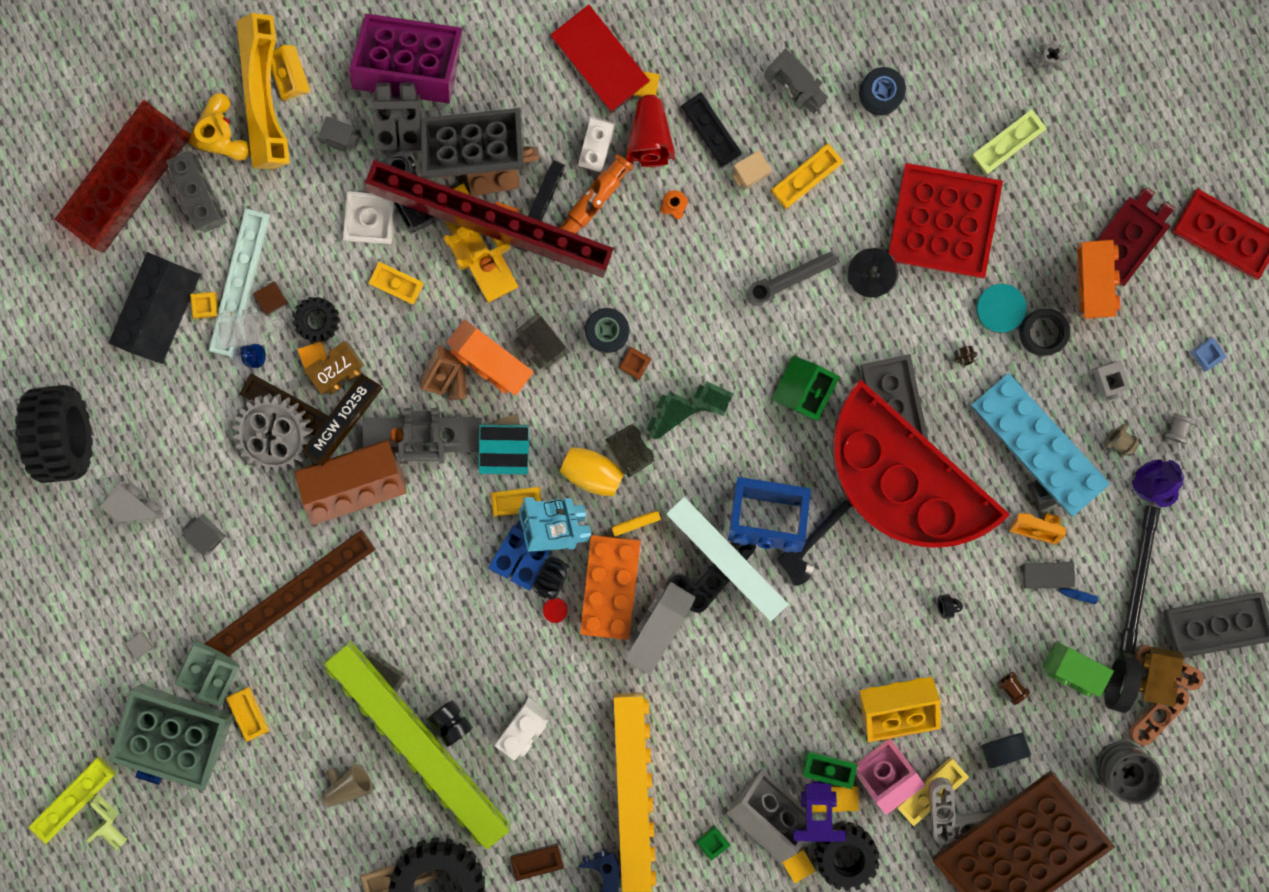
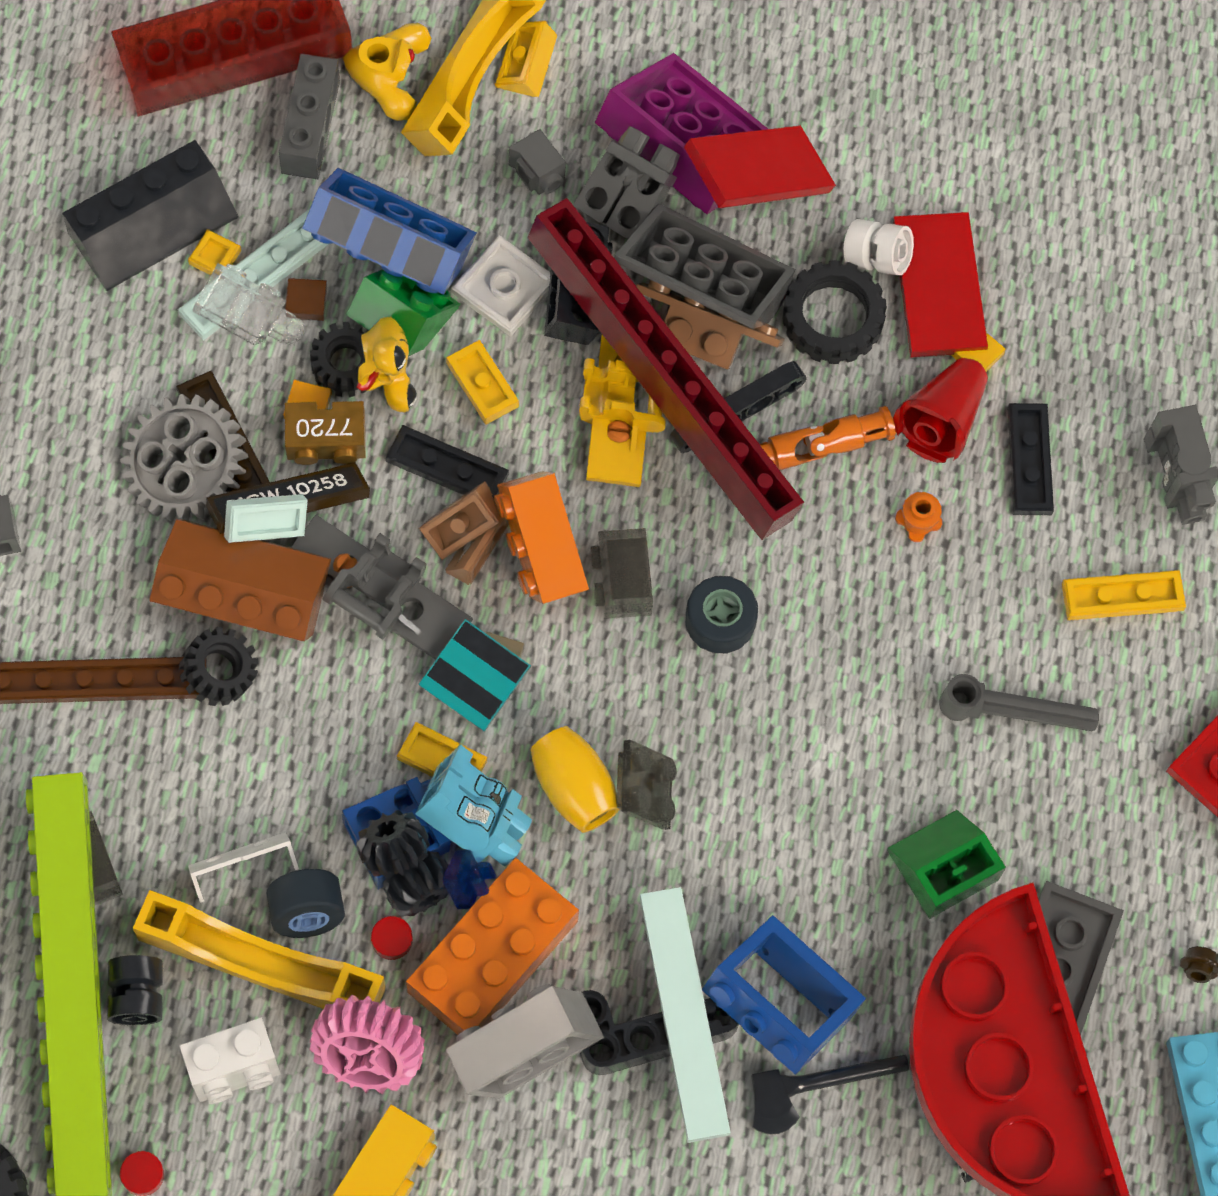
camera: 30 degrees right, 20 degrees down
(253, 355) = (231, 350): clear blue tile -> none
(288, 235) = (389, 231): none -> blue brick
(325, 270) = (416, 310): none -> green slope
(340, 312) = (386, 364): none -> yellow head
(340, 443) = (265, 518): none -> light aqua tile
(382, 522) = (234, 651): none -> black tyre
(409, 341) = (443, 463): none -> black tile
(453, 621) = (240, 854): none -> white piece
(460, 58) = (759, 166): none -> red tile
(496, 667) = (213, 943): none -> yellow arch
(502, 625) = (305, 903): none -> black wheel
(516, 804) = (142, 1173): none -> red tile
(527, 574) = (393, 844): none -> black gear
(548, 89) = (834, 276): none -> black tyre
(555, 62) = (878, 246): none -> white wheel
(573, 562) = (466, 879): none -> clear blue tile
(582, 678) = (367, 1044): none -> bright pink gear
(596, 144) = (865, 378): white plate -> none
(635, 363) = (730, 683): dark orange tile -> none
(636, 522) = (589, 890): yellow tile -> none
(676, 408) = (749, 777): clear green arch -> none
(751, 170) = (1052, 537): tan brick -> none
(886, 267) = (1132, 748): black plate -> none

